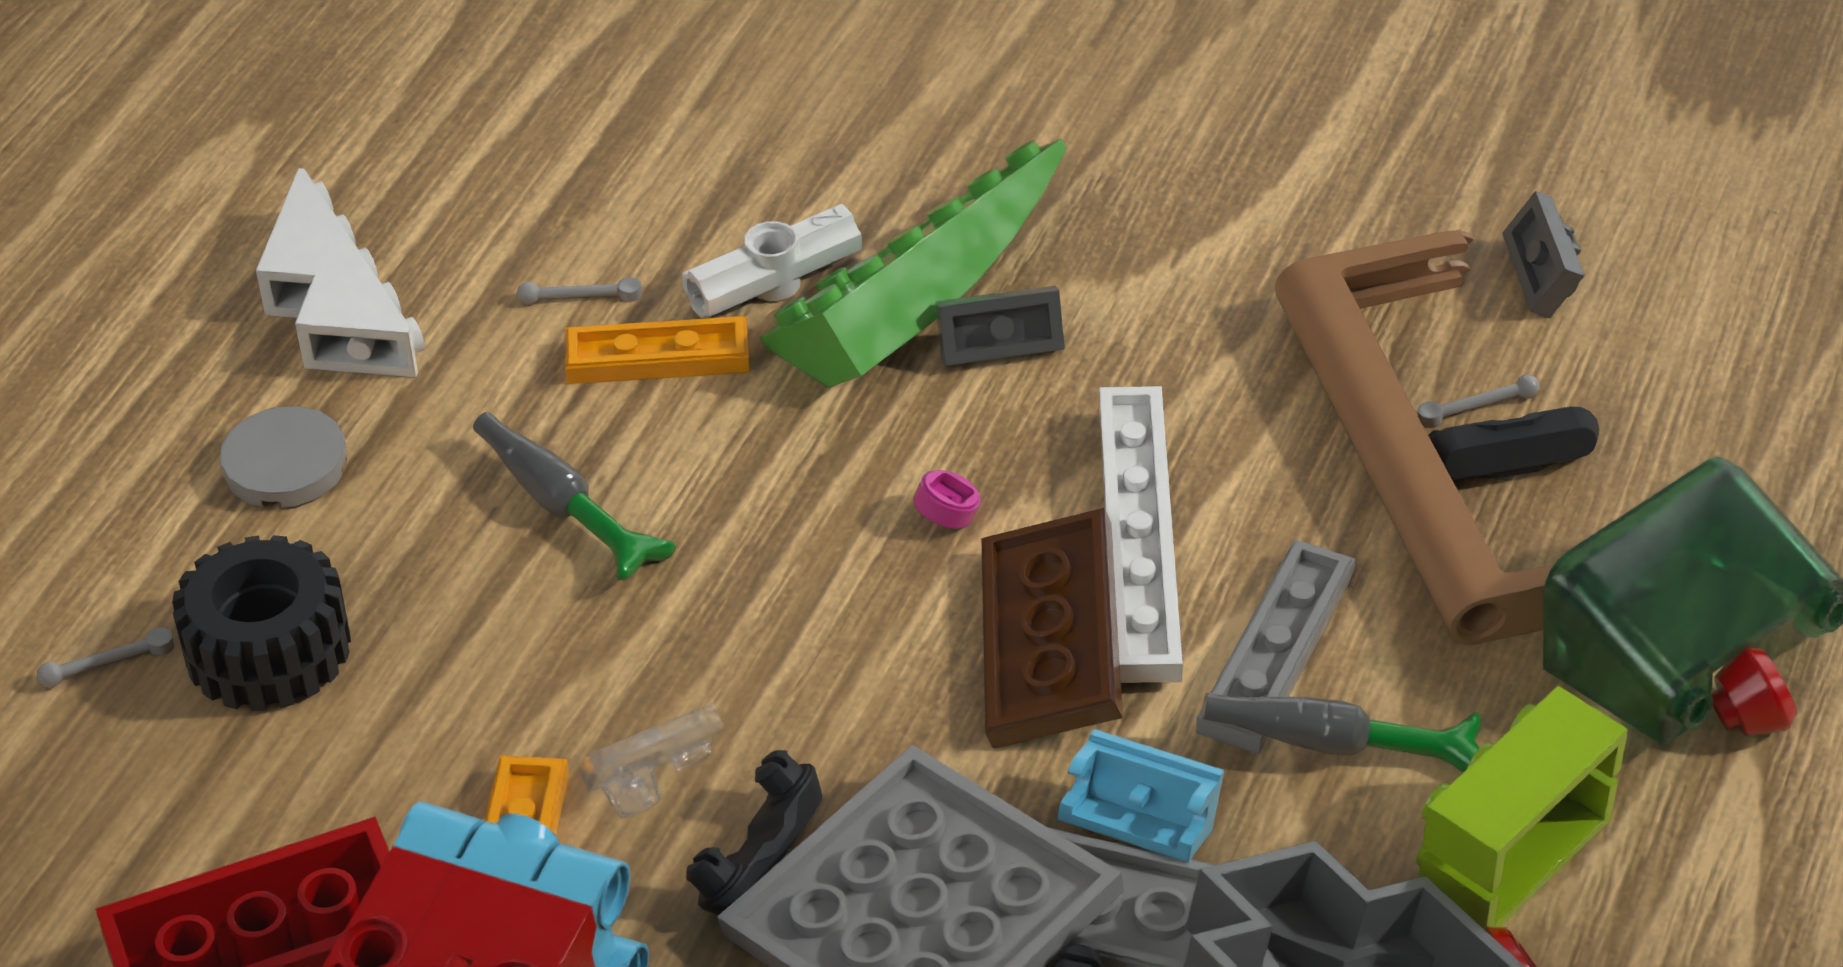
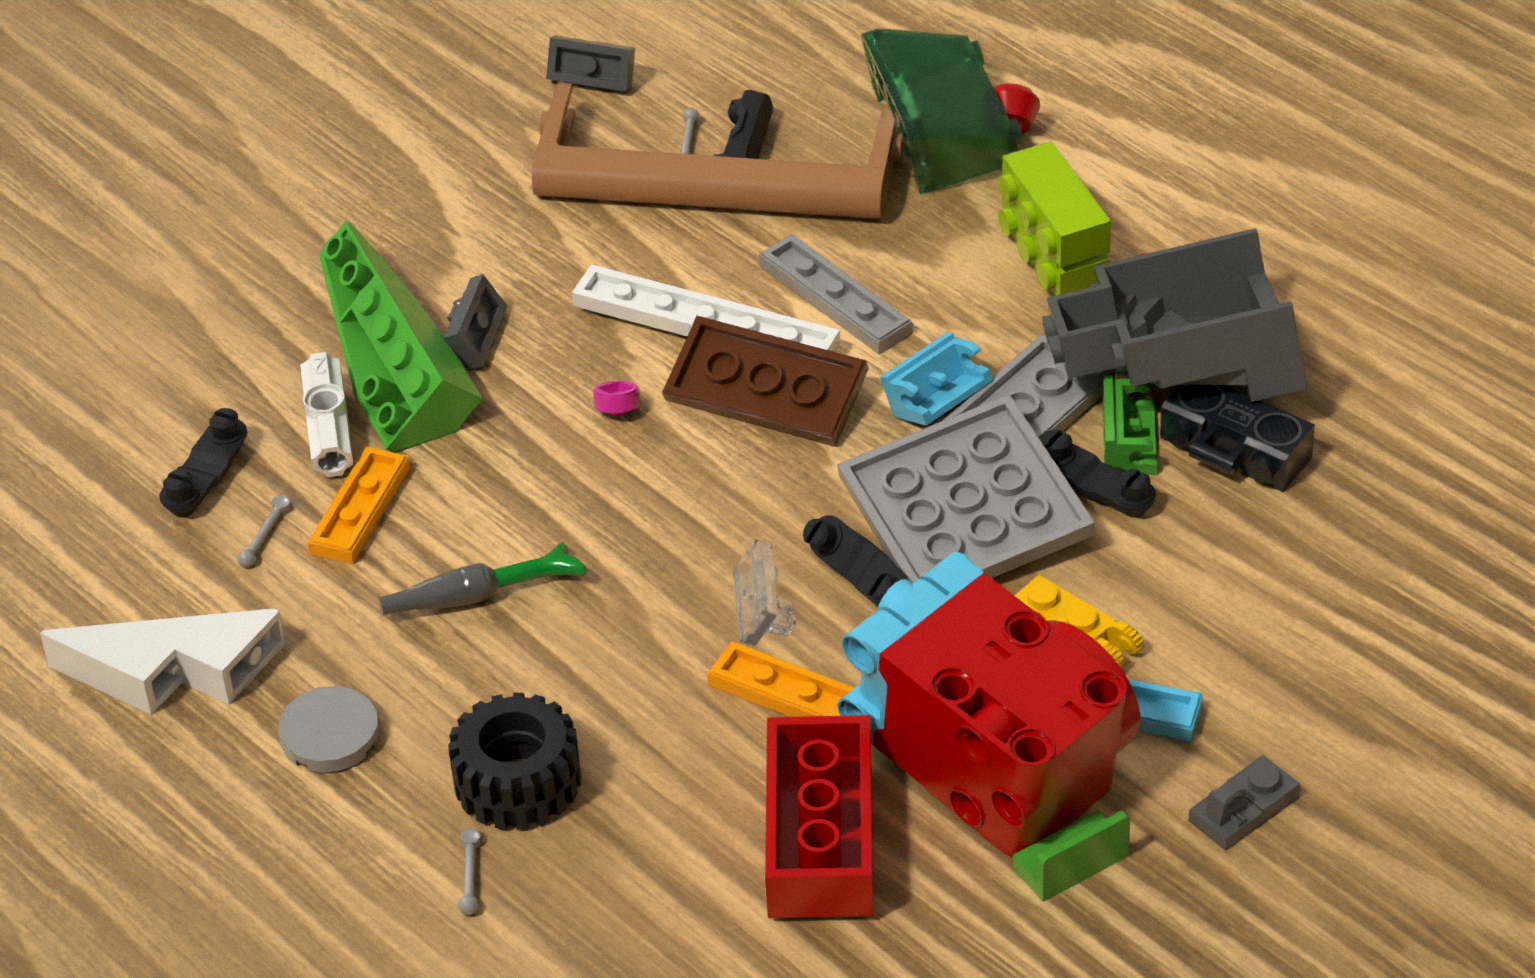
camera: 65 degrees left, 0 degrees up
(686, 203) = (206, 465): none -> black piece
(1341, 727) = (933, 279): dark grey piece -> none

